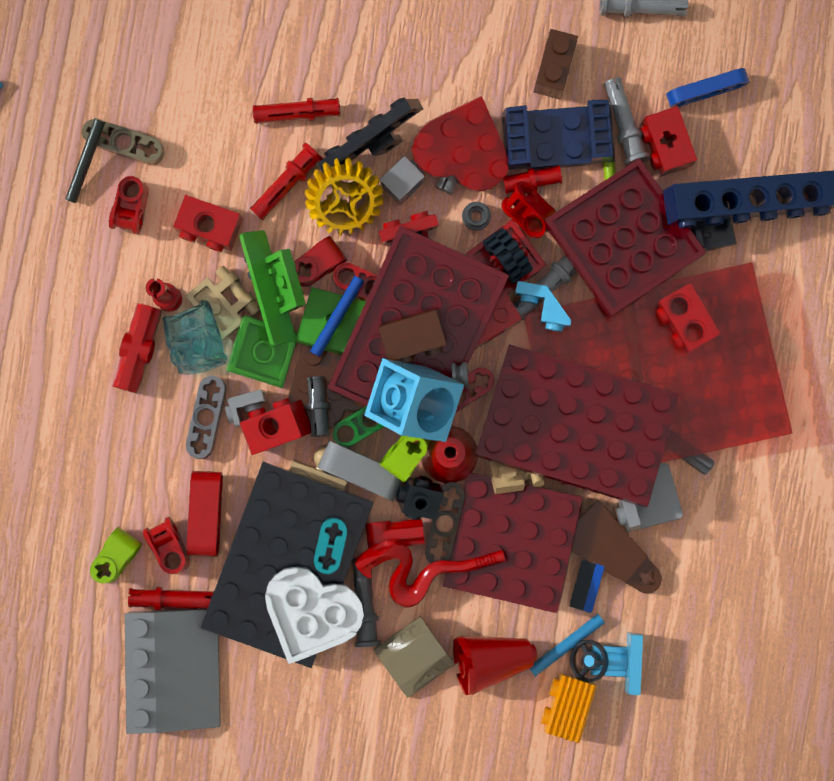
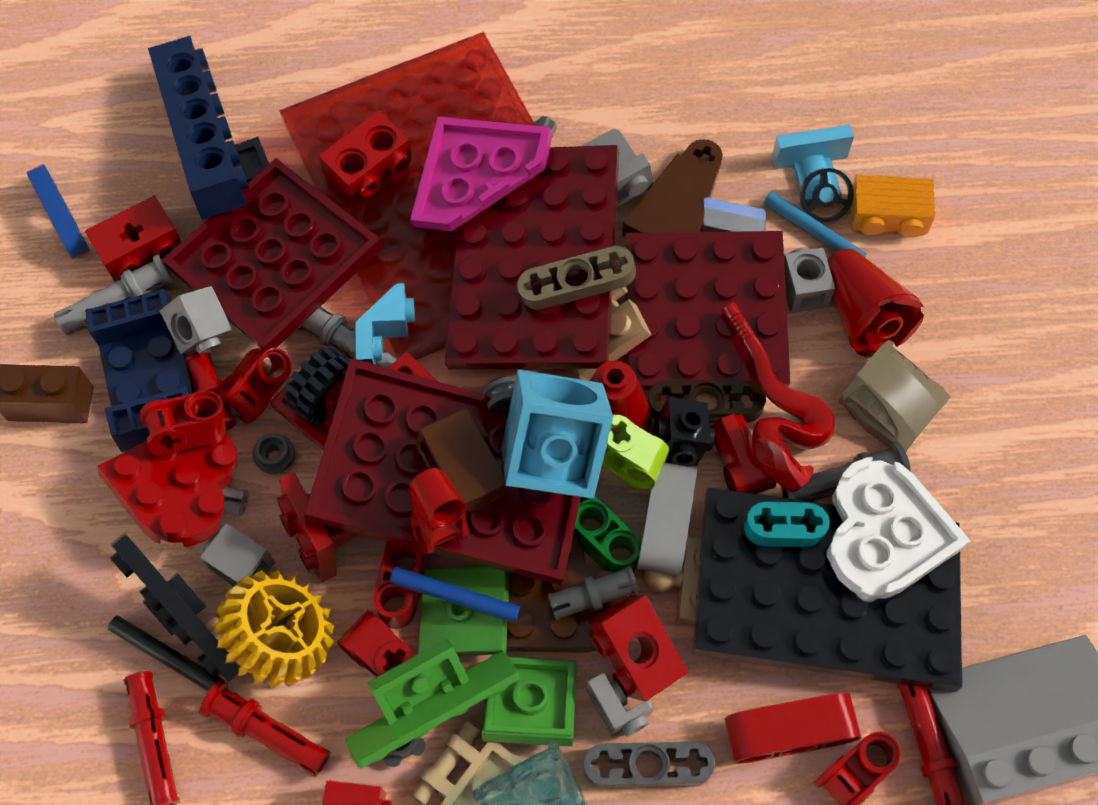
camera: 105 degrees left, 20 degrees down
(355, 122) = (162, 652): none -> pearl dark grey bar
(378, 310) = (436, 510): none -> red piece
(498, 154) = (186, 421): none -> red piece
(510, 616) = (803, 293): none -> light grey brick
(533, 425) = (585, 262): none -> dark tan beam
(578, 176) = (196, 321): none -> light grey brick
(652, 395) = (474, 167): none -> dark pink plate

